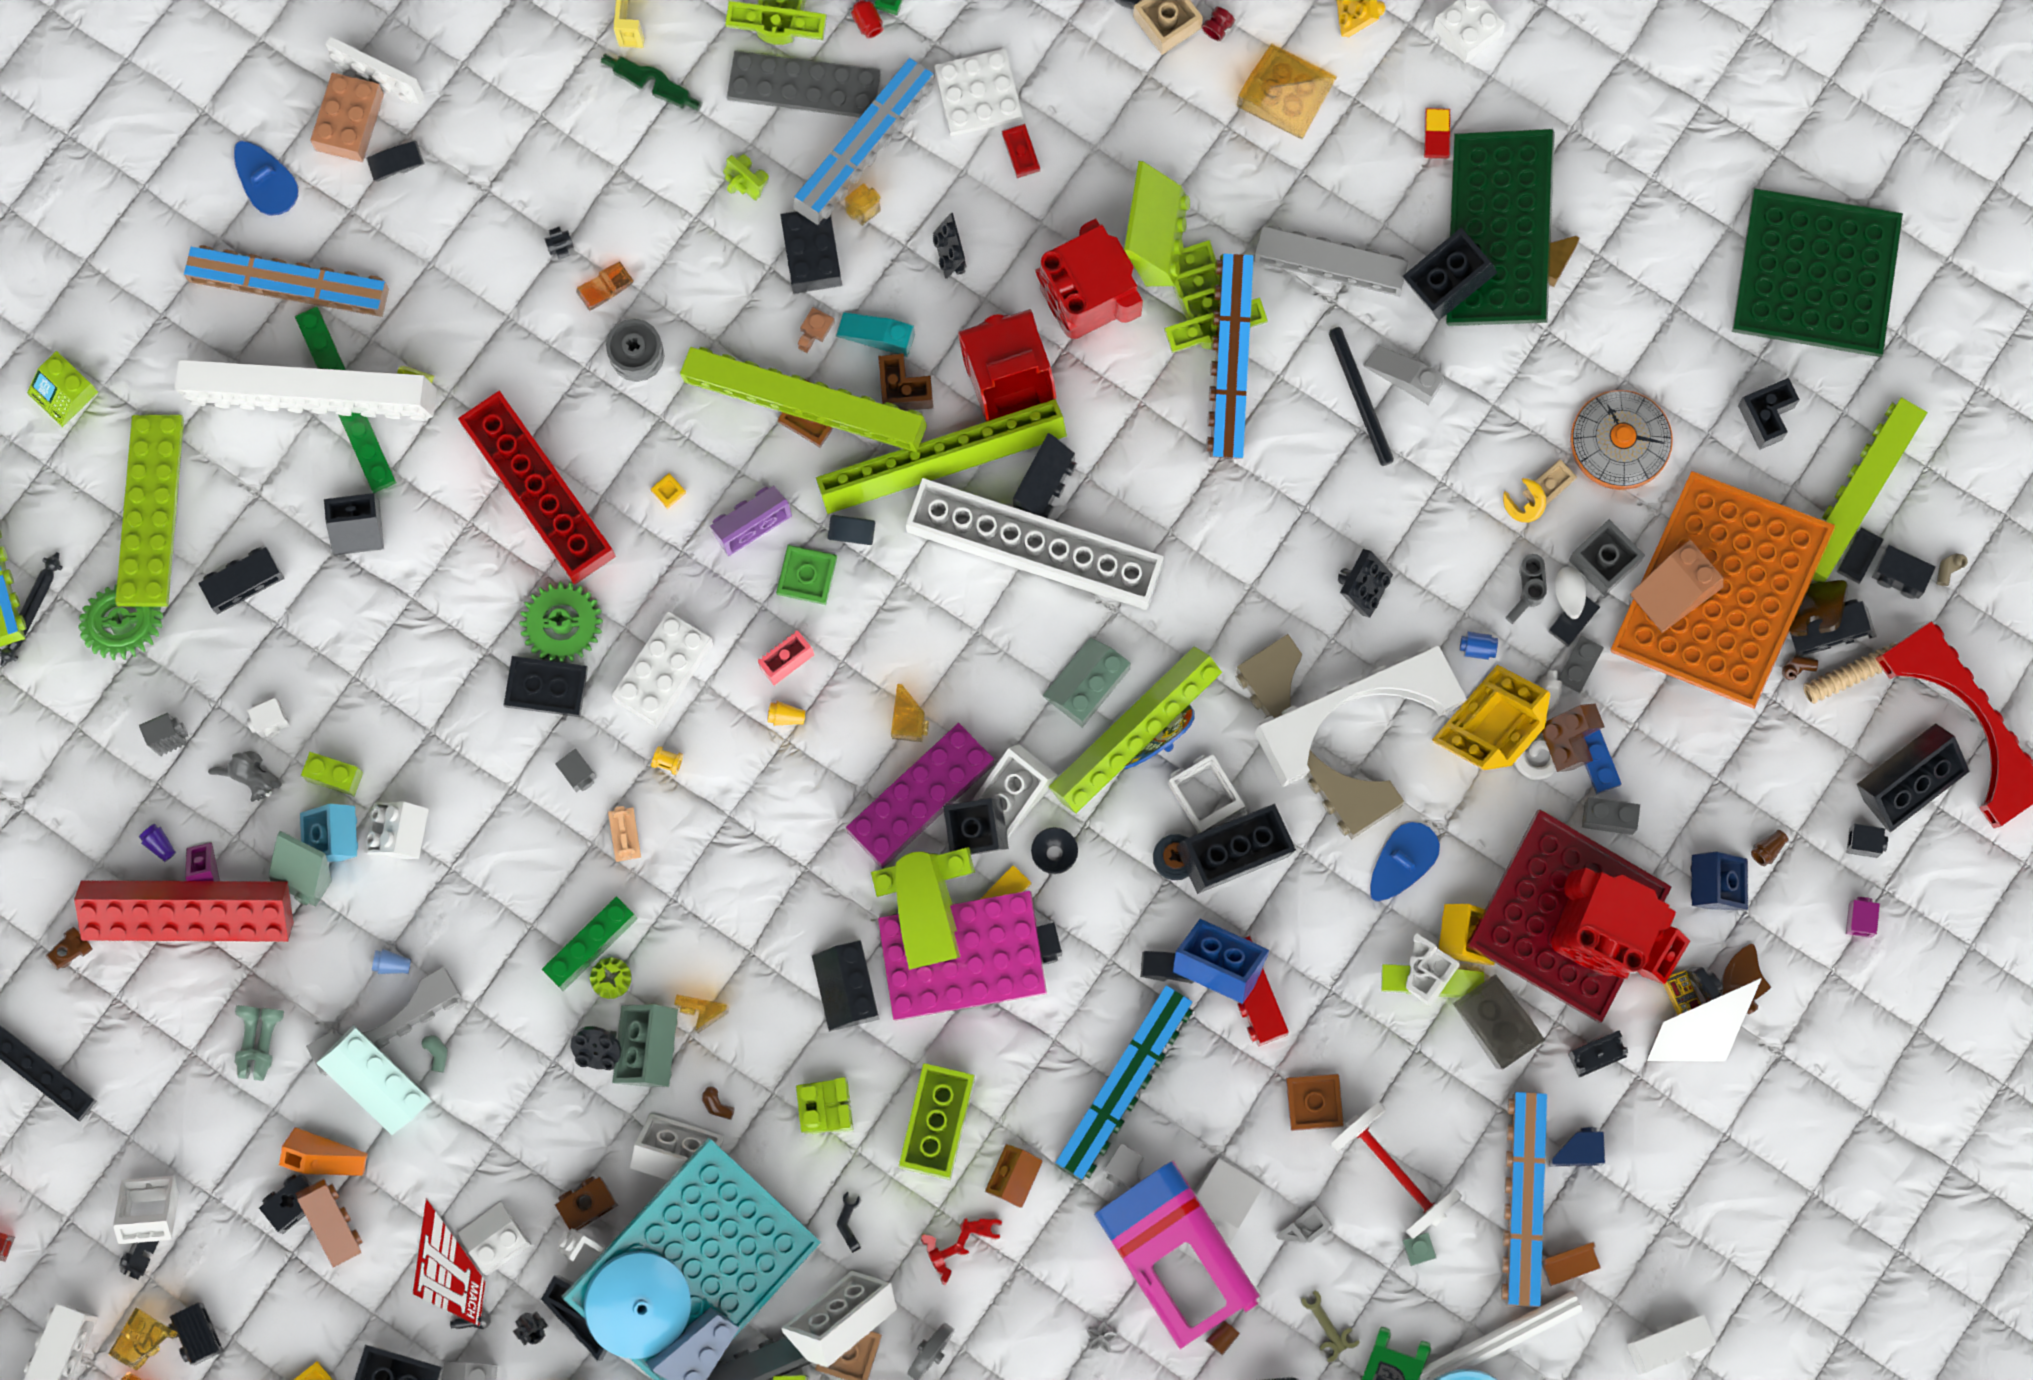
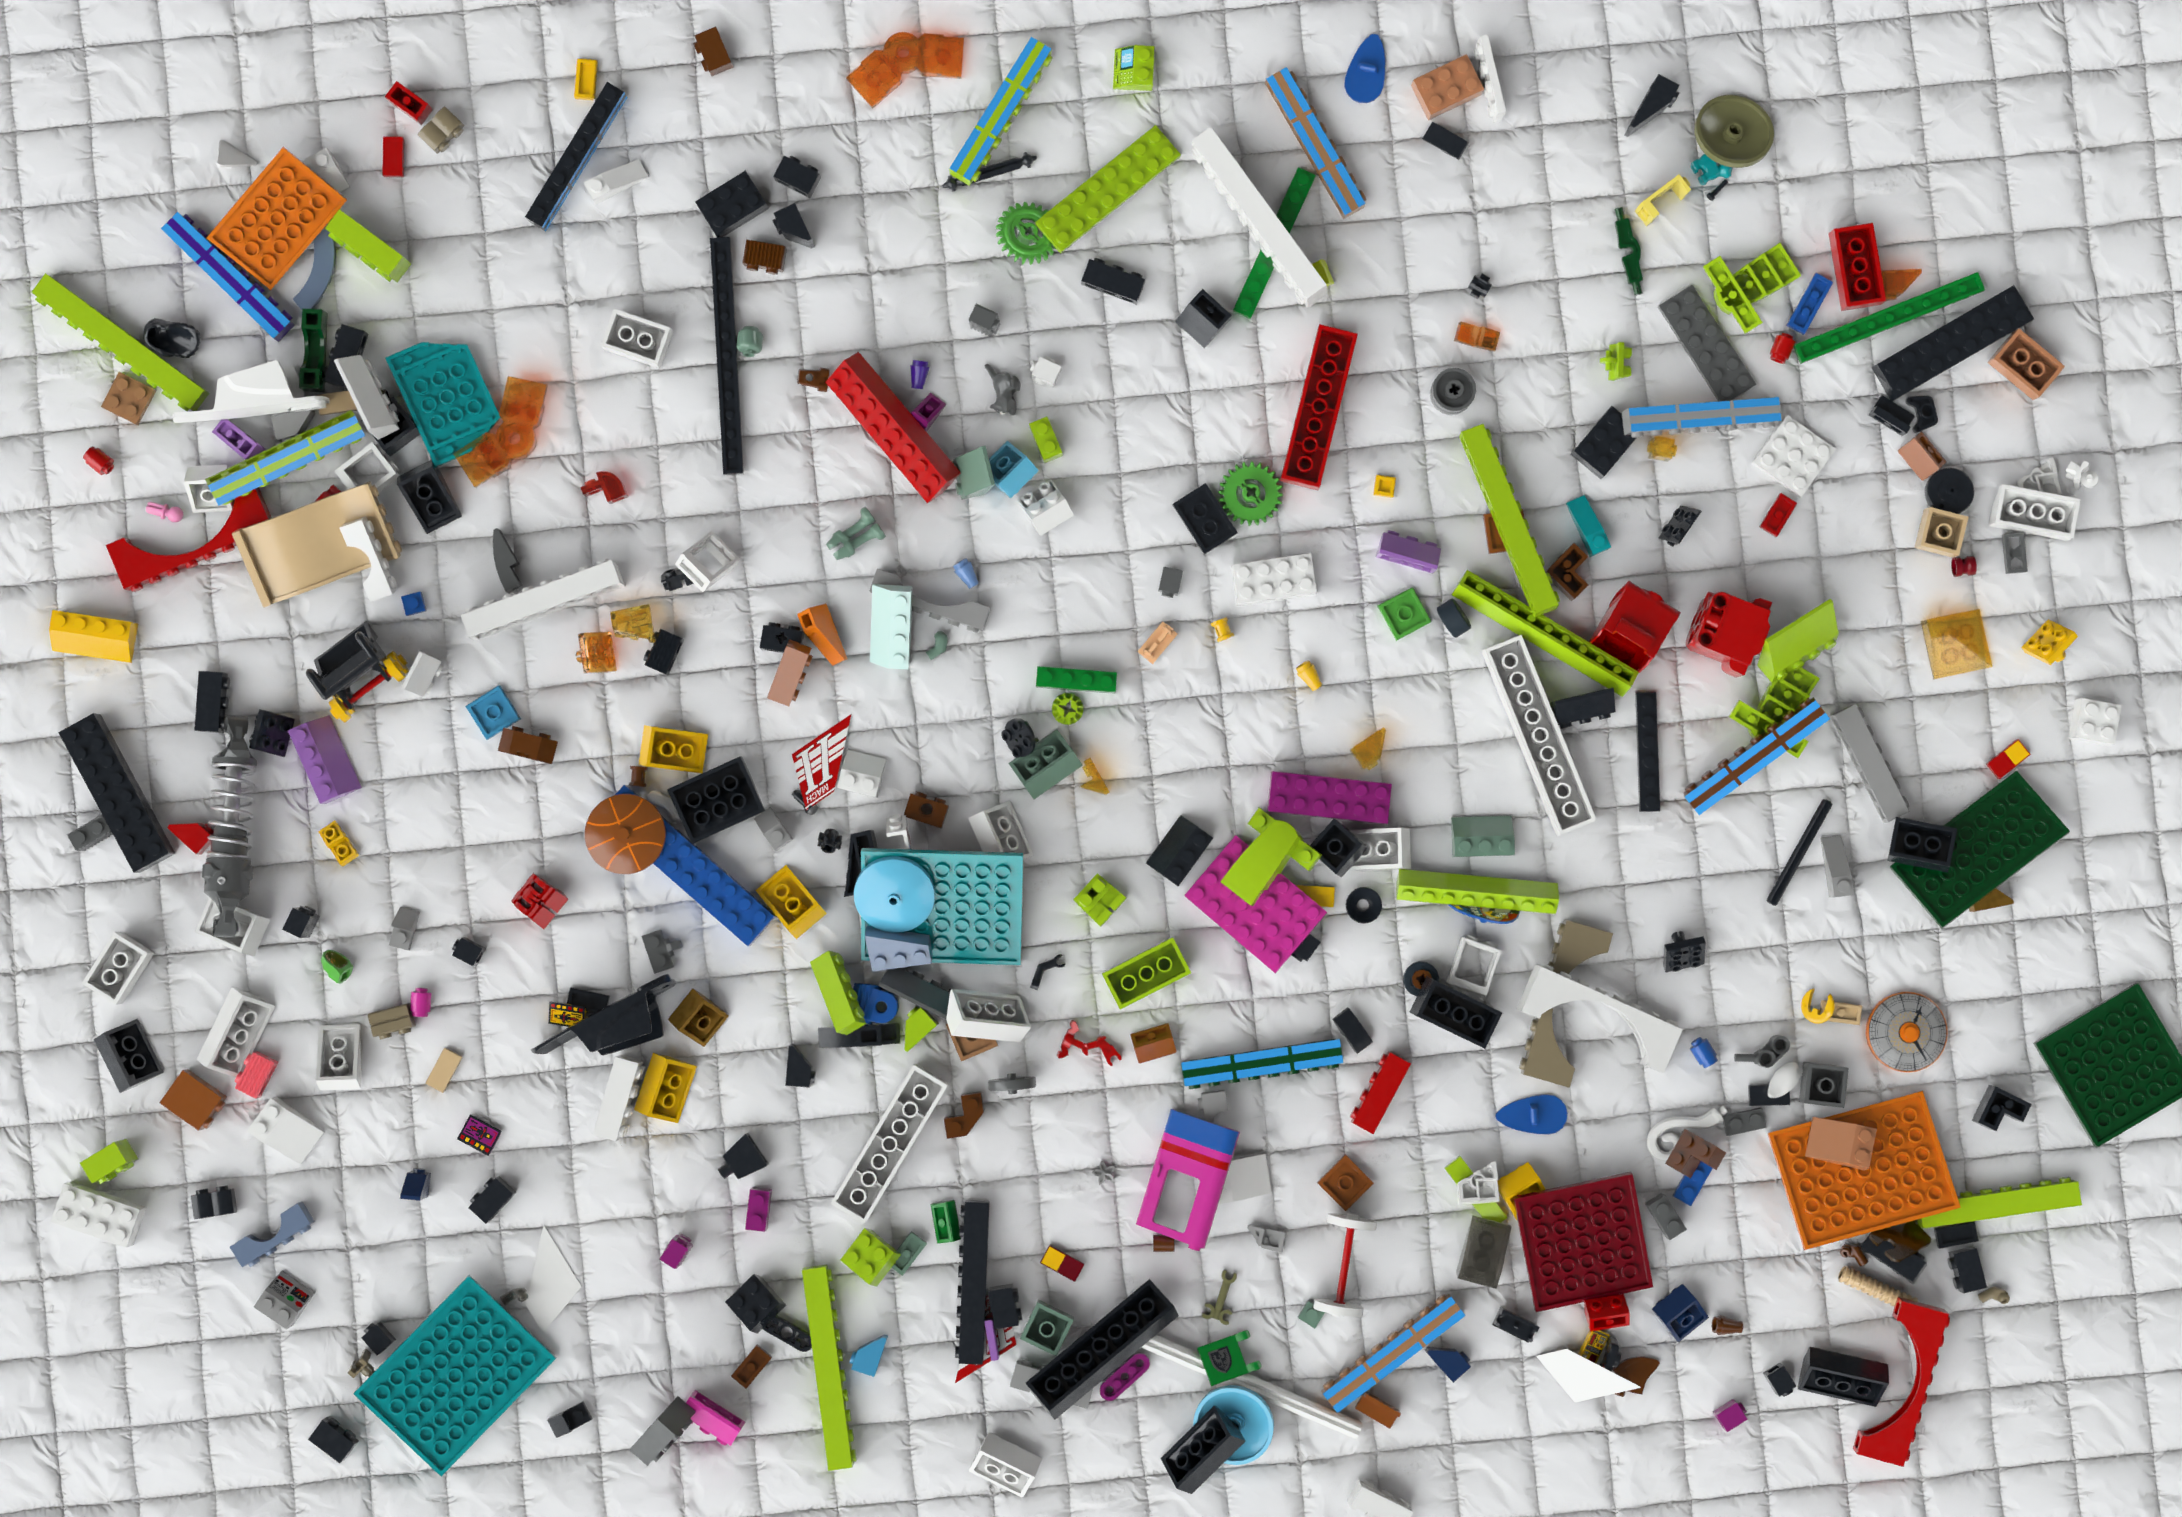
camera: 45 degrees right, 10 degrees up
(713, 1104) = (1045, 834): reddish brown arm -> none
(785, 658) = (1343, 647): coral brick -> none
(814, 327) = (1560, 486): nougat plate -> none
(1141, 457) = (1647, 751): none -> black plate
(1220, 960) = (1381, 1060): blue slope -> none
(1496, 721) = (1665, 1101): yellow slope -> none
(1609, 922) = (1597, 1272): red piece -> none

